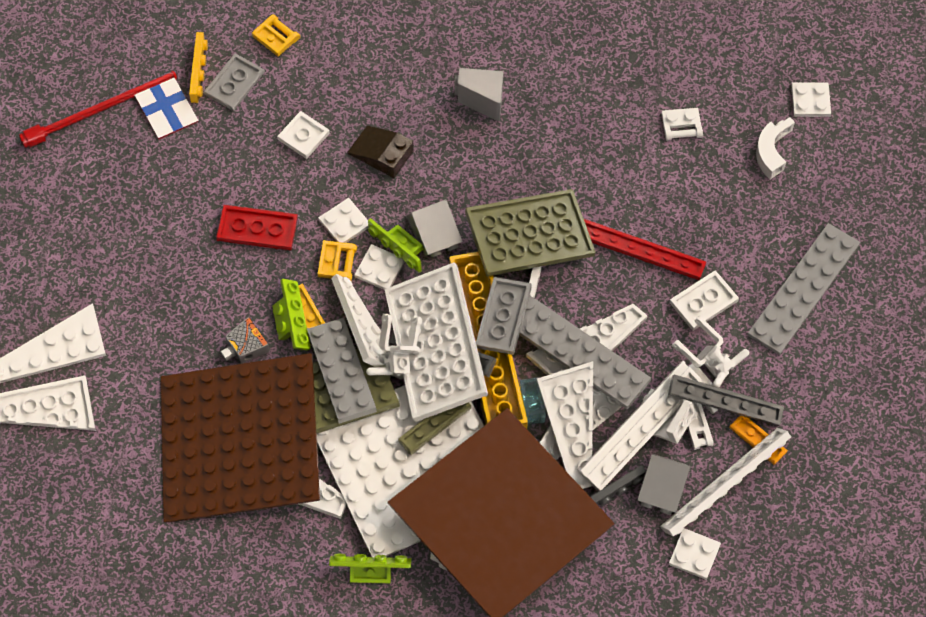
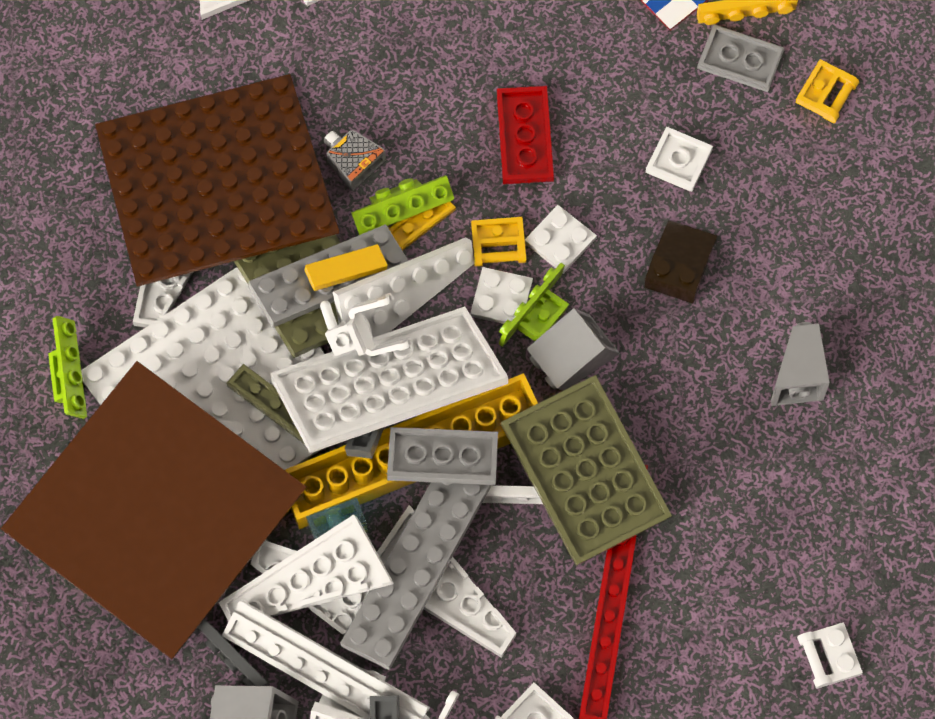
camera: 80 degrees right, 5 degrees up
(342, 354) = (345, 267): none -> yellow tile

